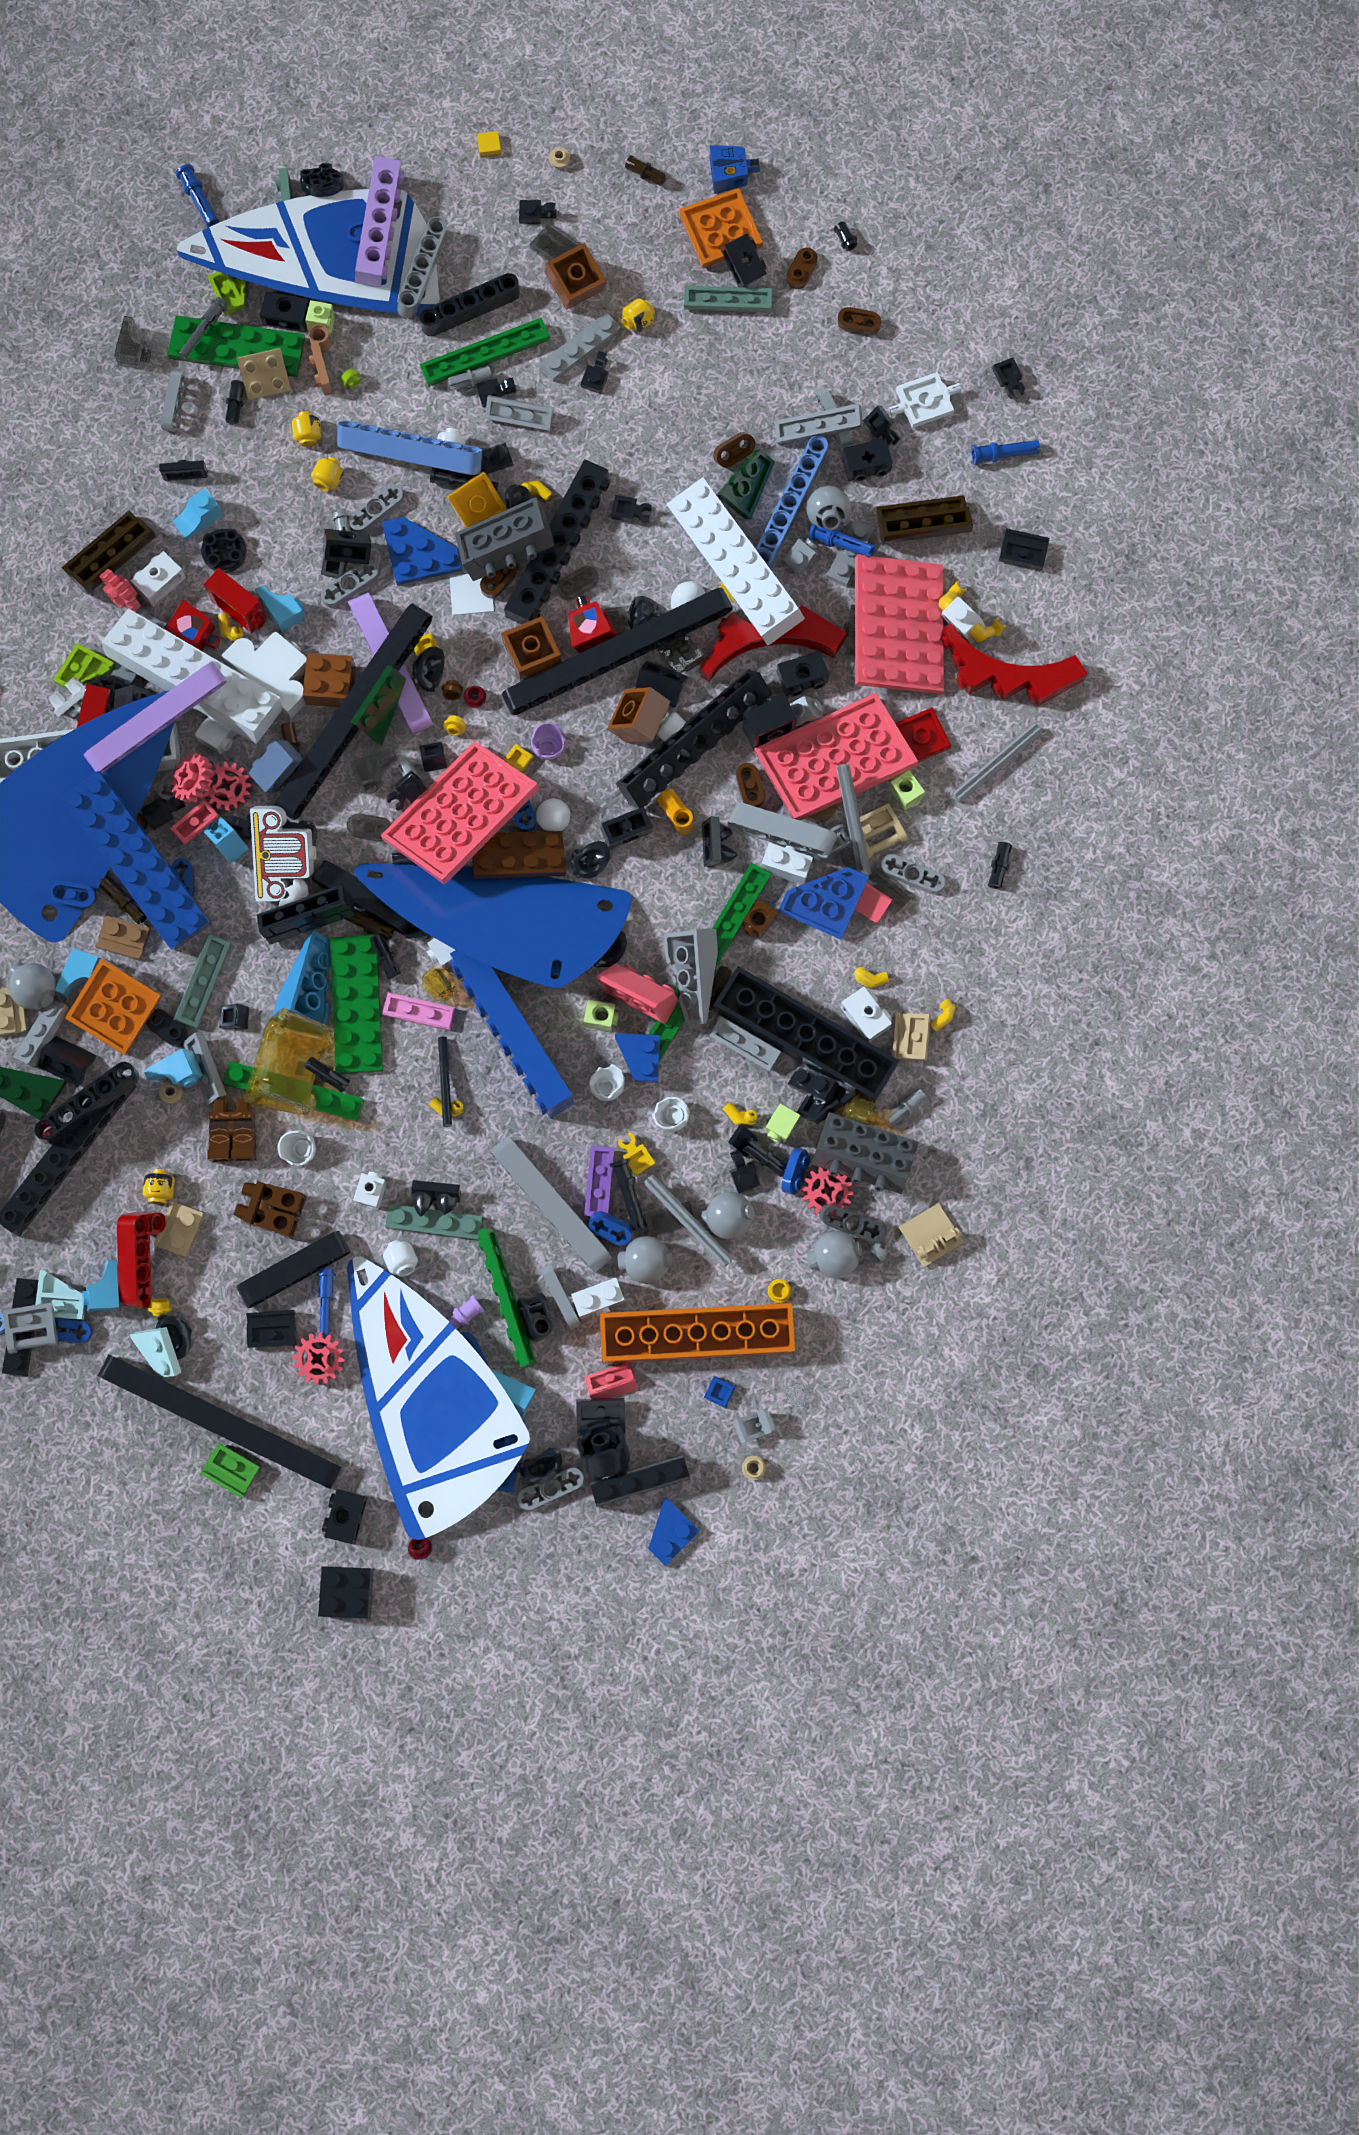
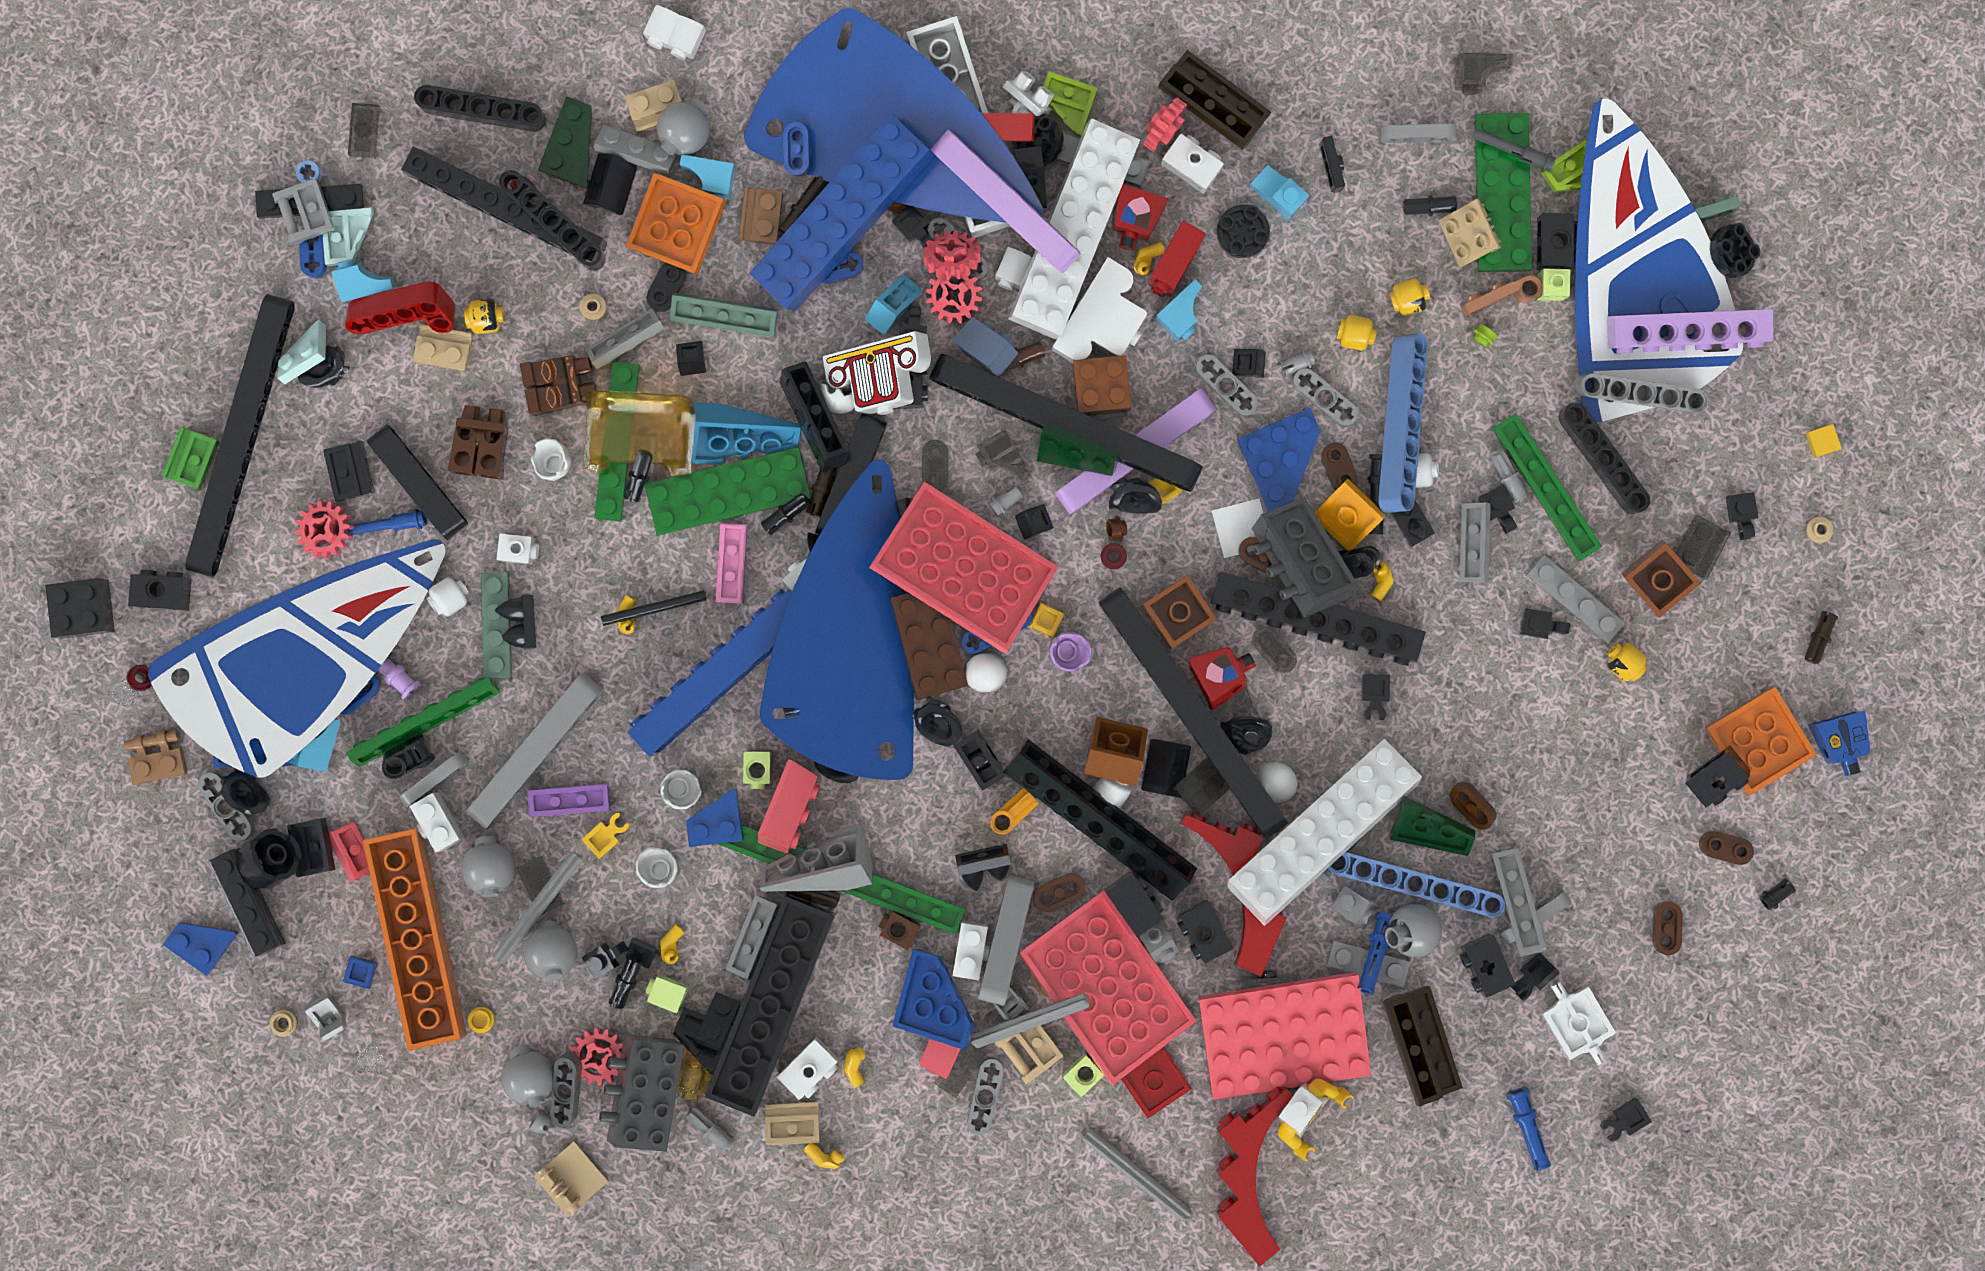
camera: 80 degrees right, 10 degrees up
(159, 1306) = (352, 345): yellow plate -> none
(178, 1067) = (614, 310): medium azure arch -> none
(193, 188) = (1698, 99): blue pin -> none
(194, 822) = (905, 268): coral slope -> none
(346, 546) = (1266, 374): black brick -> none
(408, 788) = (986, 501): black plate -> none
(436, 509) = (1340, 467): none -> reddish brown plate
(438, 984) = (763, 580): clear yellow head -> none
(455, 725) = (1073, 540): yellow plate -> none
(502, 1547) = (158, 765): none -> medium nougat plate
(610, 1227) = (517, 821): blue beam -> none
(626, 1183) = (569, 830): black pin -> none
(728, 299) = (1668, 765): sand green plate -> none
(793, 1176) = (608, 1015): blue plate -> none
(1000, 865) = (1012, 1195): black pin -> none
(1024, 549) = (1407, 1169): black plate -> none

